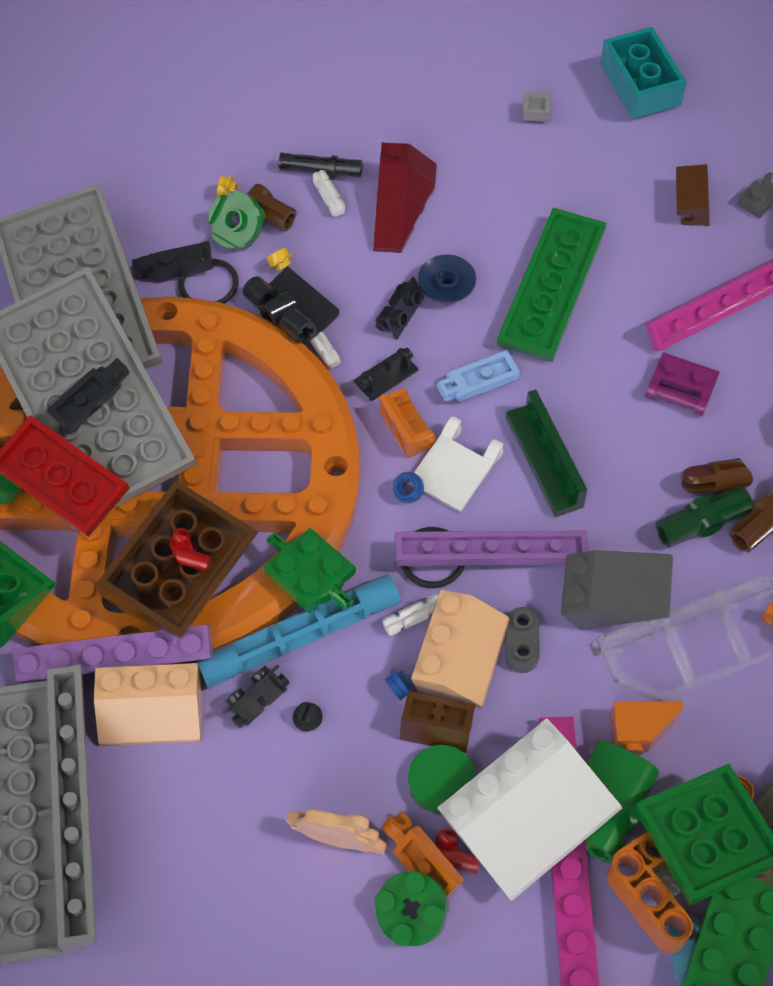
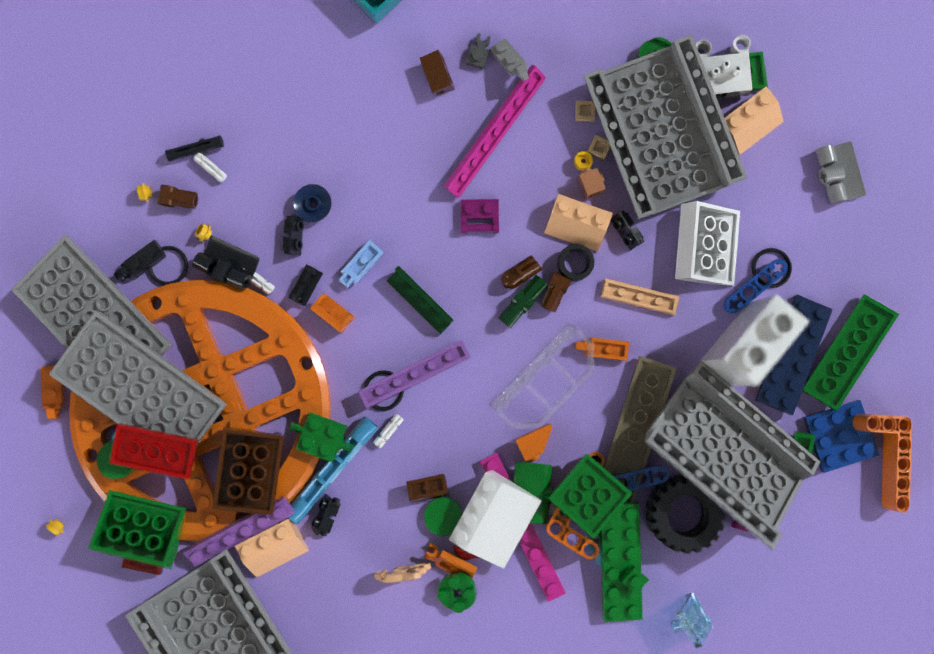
camera: 25 degrees left, 25 degrees up
(88, 395) = (143, 397): black hinge -> none
(184, 551) = (251, 470): red arm -> none
(250, 220) = (169, 211): green plate -> none
(307, 716) = (358, 513): black piece -> none
(399, 487) = (351, 359): blue plate -> none
(399, 683) = (398, 475): blue plate -> none
(403, 188) = (255, 144): dark red wedge -> none
(453, 471) = (370, 331): white flag -> none
(460, 649) = (423, 443): light nougat slope -> none
(522, 637) = (452, 419): dark grey plate -> none
(536, 106) = (312, 41): light grey plate -> none
(551, 284) = (376, 177): green plate -> none
(616, 588) = (492, 374): dark grey slope -> none

